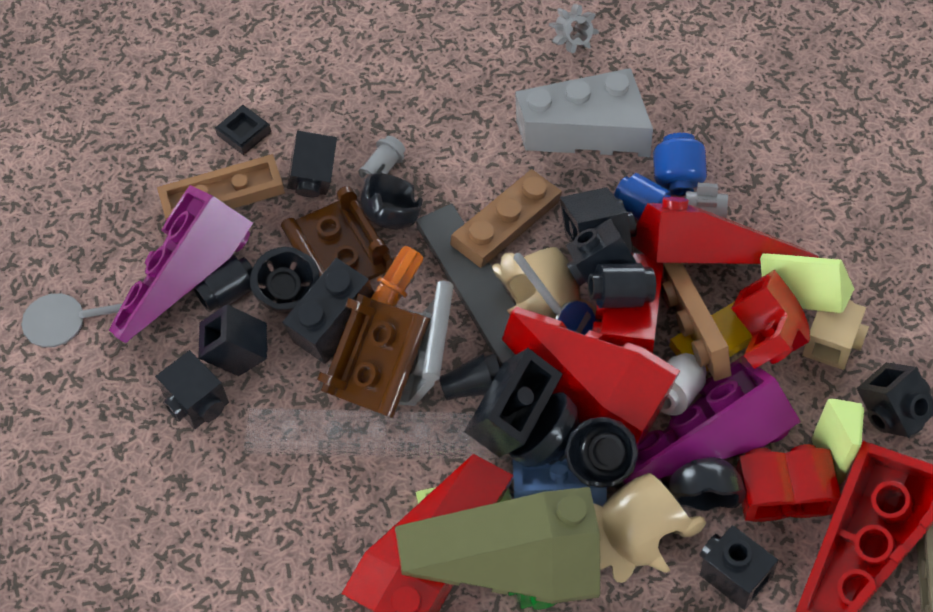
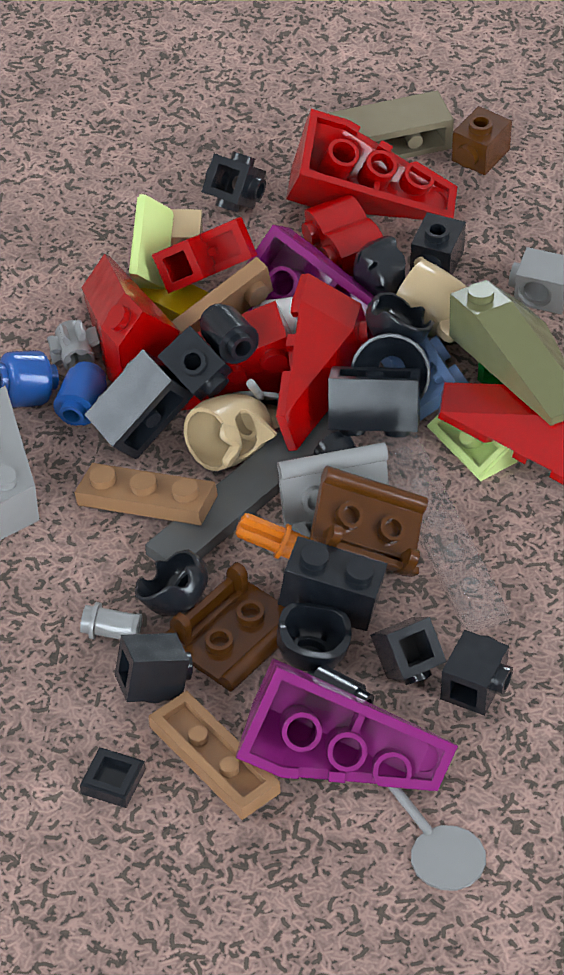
camera: 115 degrees left, 10 degrees down
(841, 432) = (296, 191): yellowish green slope -> none

